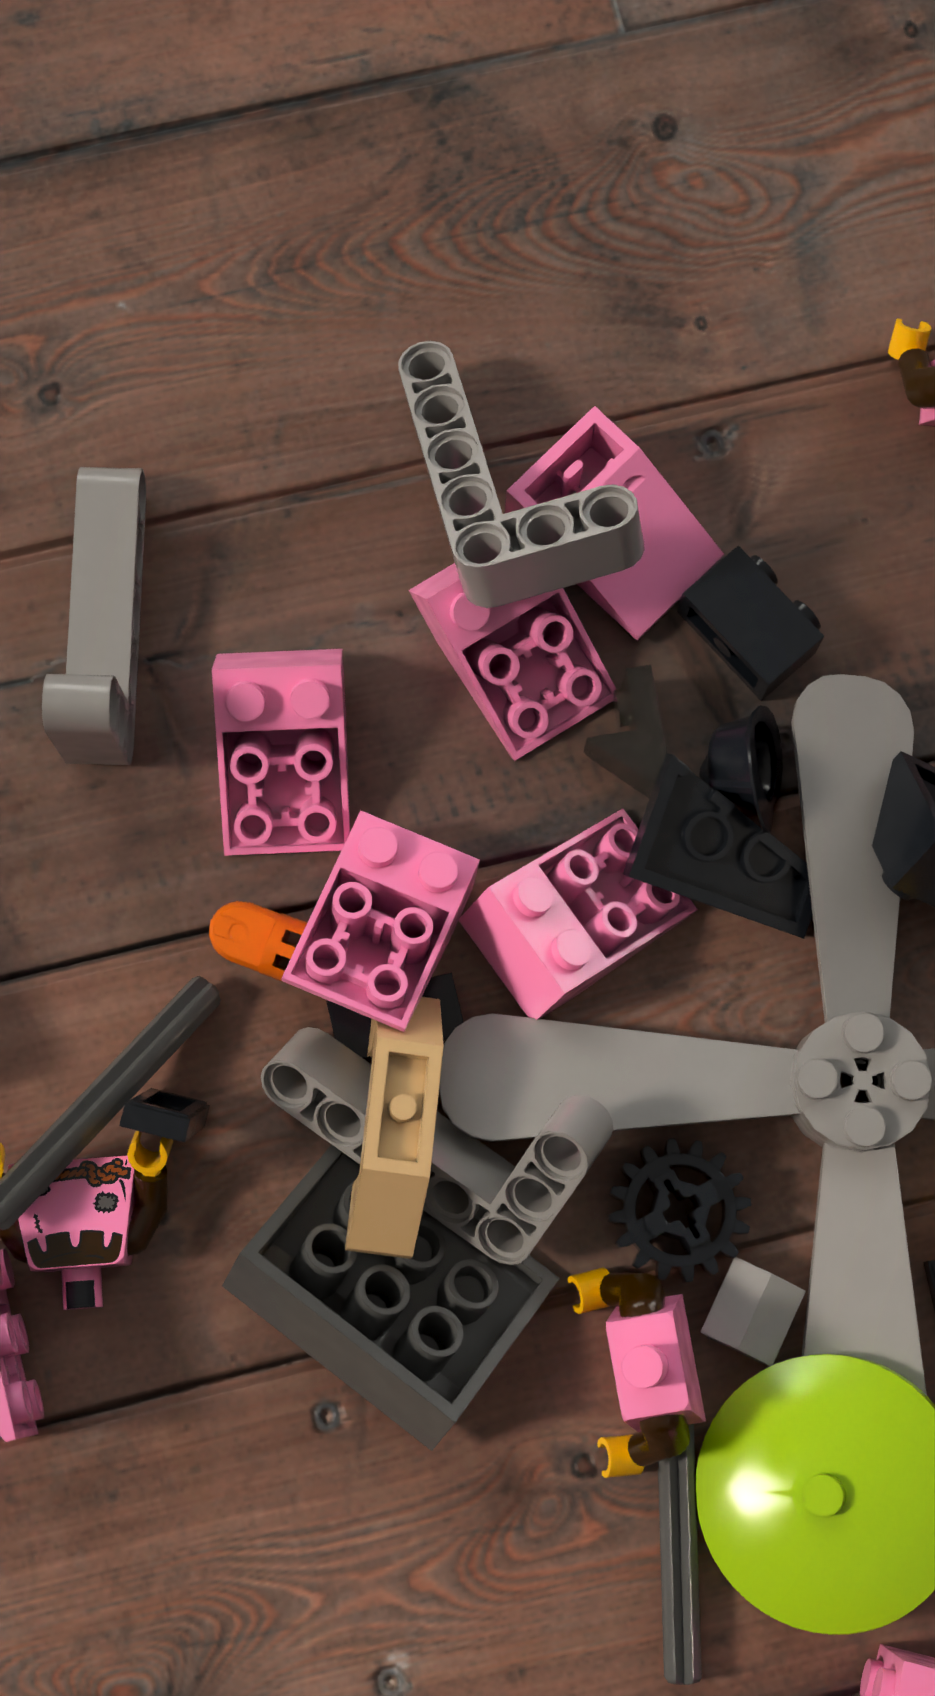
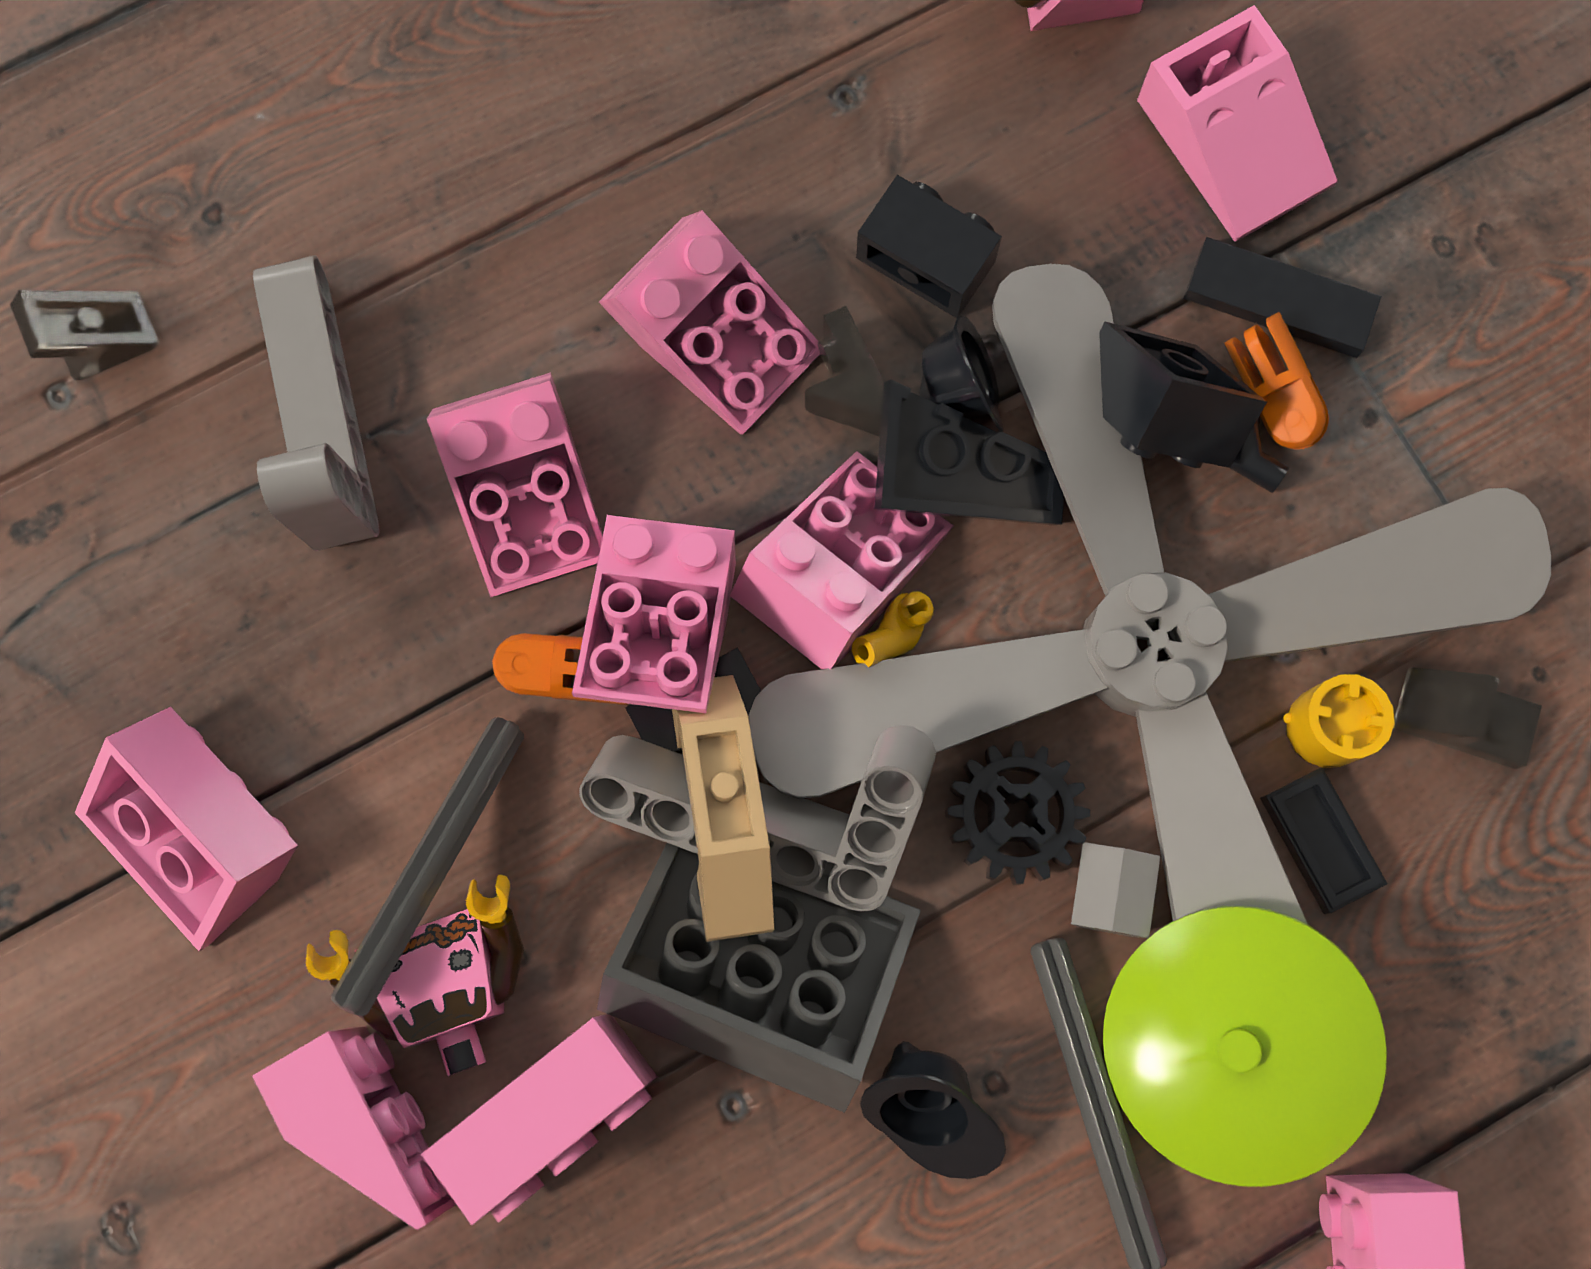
camera: 10 degrees left, 0 degrees up
(145, 1375) = (542, 1120): none -> bright pink brick
(165, 1115) = (495, 859): black tile -> none
(515, 1477) = (931, 1114): none -> black piece
(519, 551) = (693, 222): light grey beam -> none
(612, 1000) = (897, 631): none -> yellow arm
(650, 1367) = (1035, 972): torso -> none
(674, 541) = (772, 186): bright pink slope -> none

